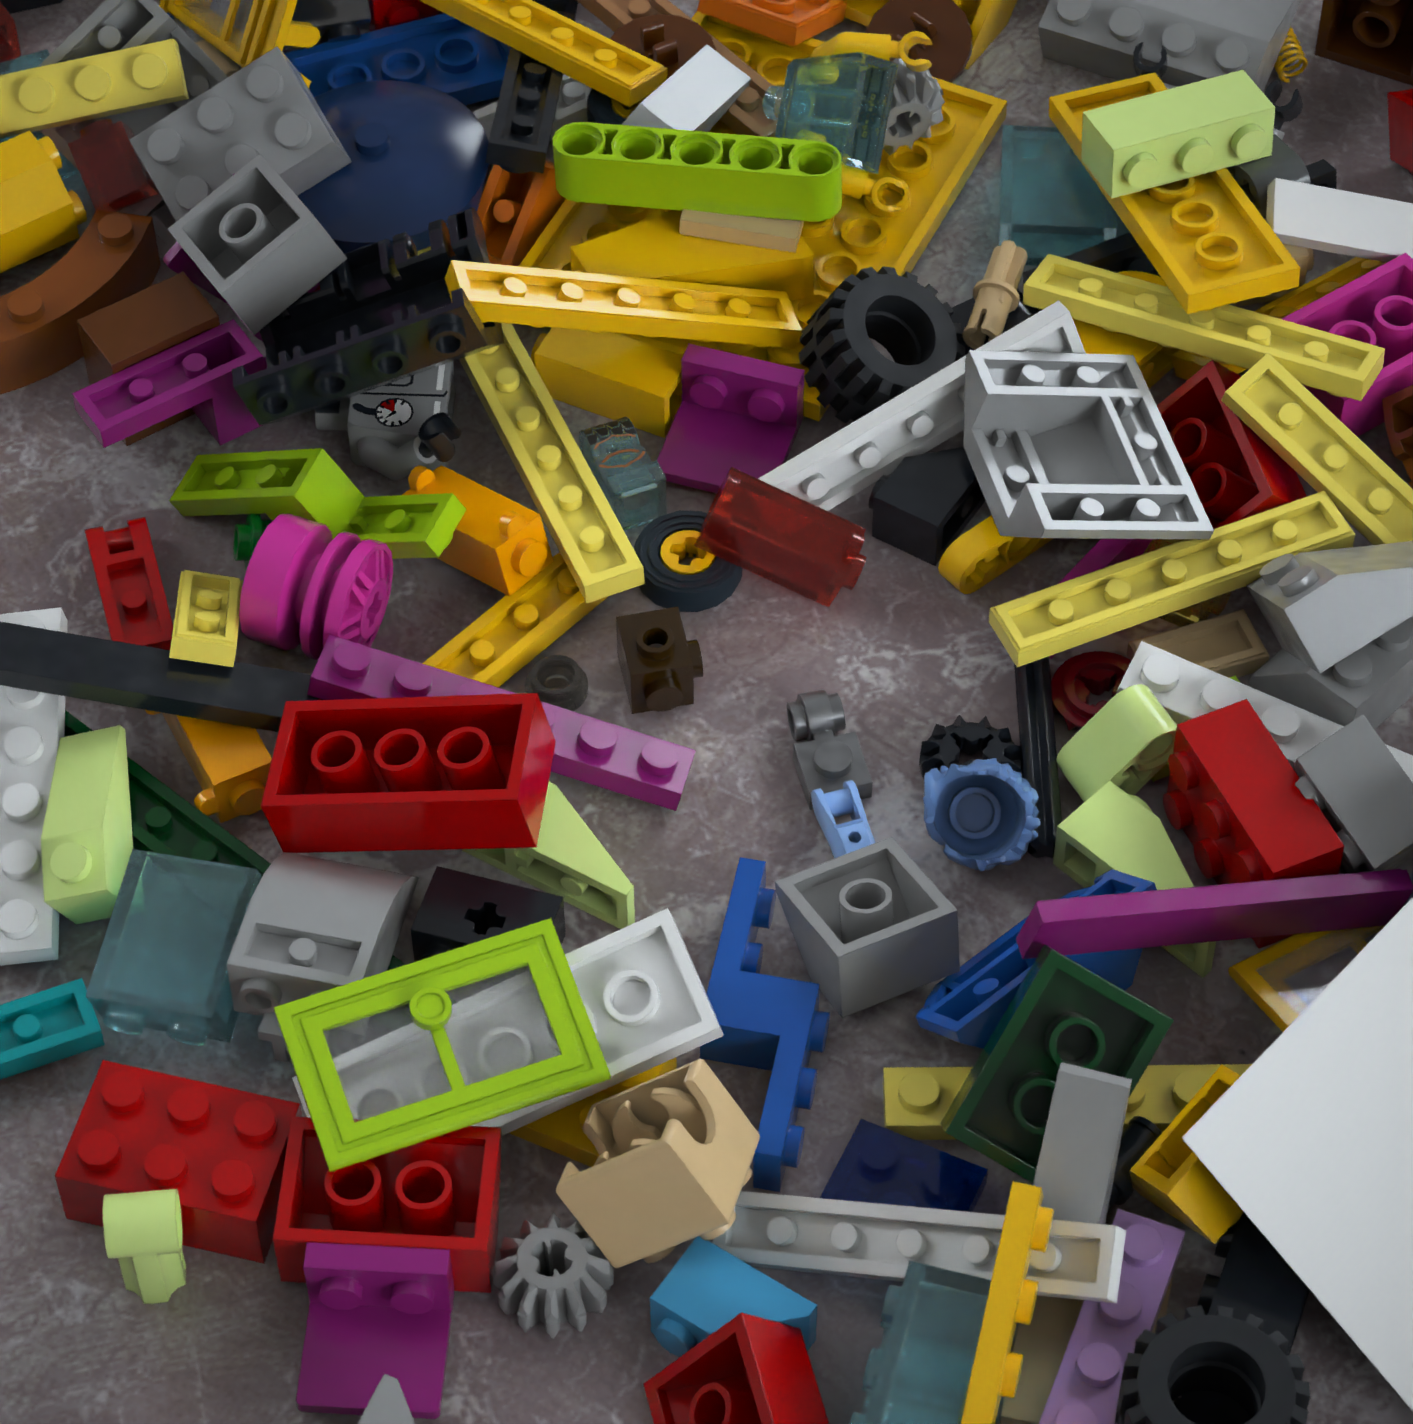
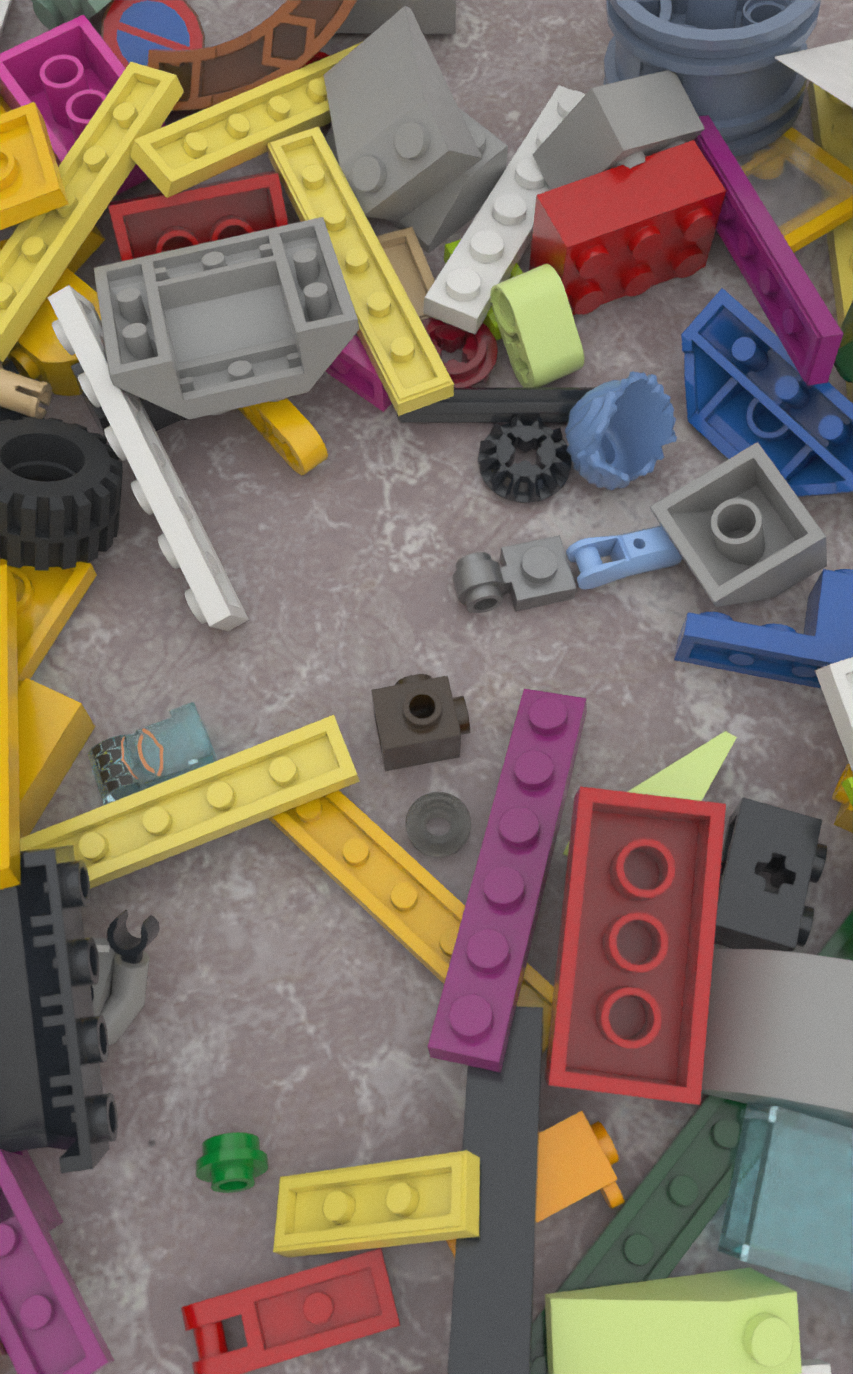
camera: 90 degrees left, 15 degrees up
(314, 586) = (339, 1072): dark pink wheel -> none
(316, 489) = (204, 1086): lime bracket -> none
(495, 537) = (245, 902): light orange brick -> none
(671, 584) = (258, 672): black bush -> none
(731, 416) = (111, 649): magenta bracket -> none
(782, 538) = (276, 596): clear red brick -> none
(926, 503) = (226, 473): black slope -> none
(1125, 836) = (646, 327): yellowish green slope -> none

